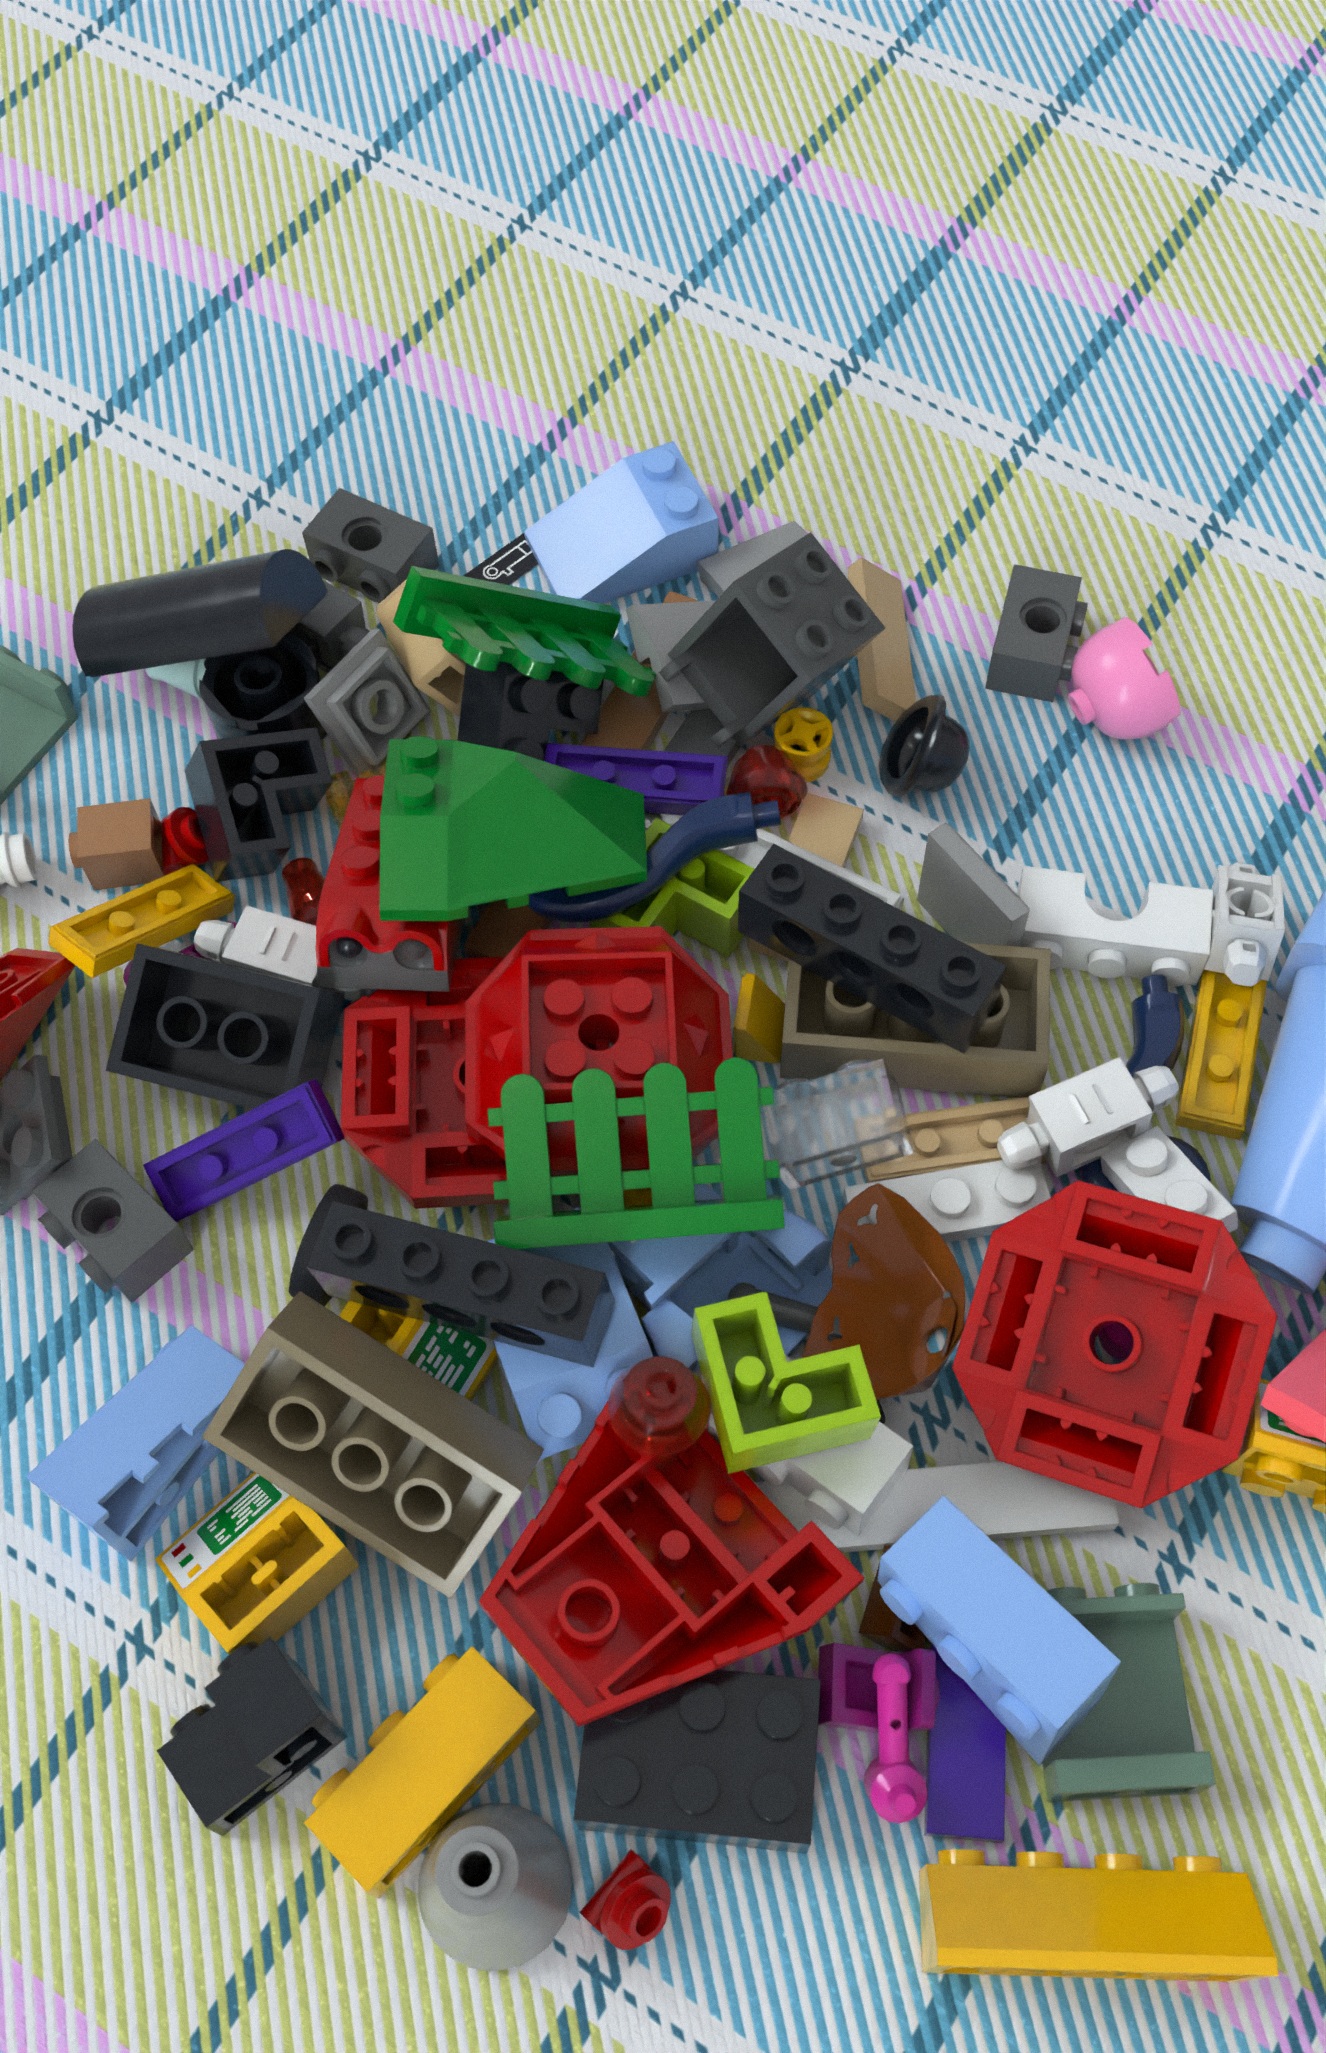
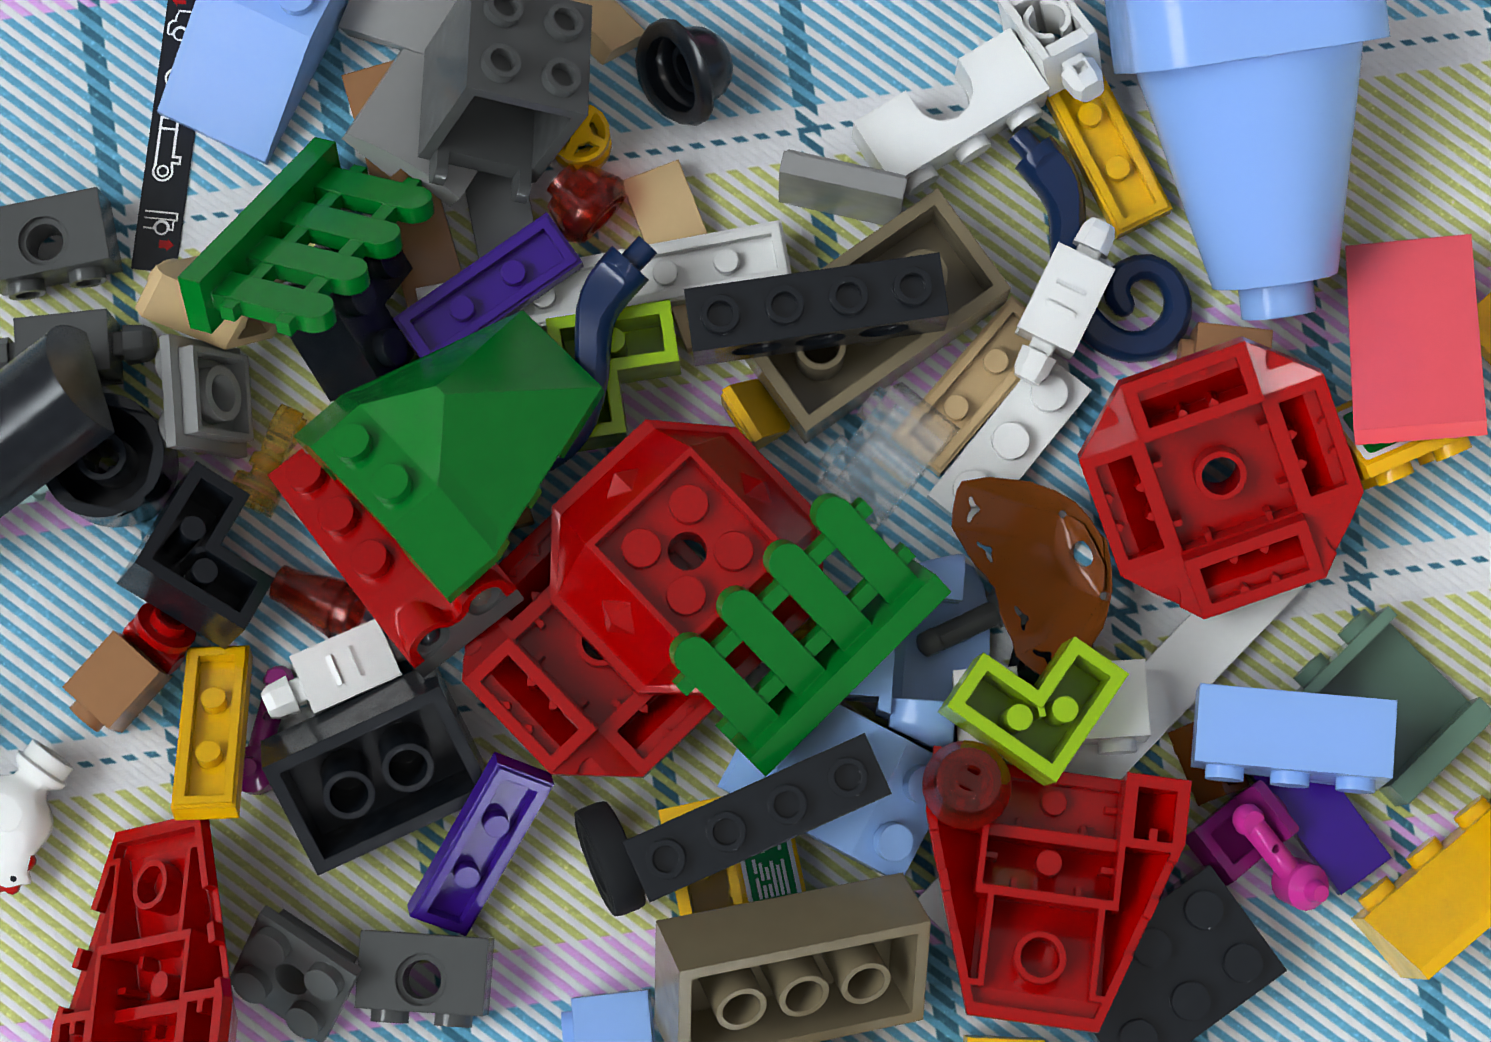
camera: 40 degrees left, 20 degrees up
(1160, 1172) = (1162, 313): white plate -> none

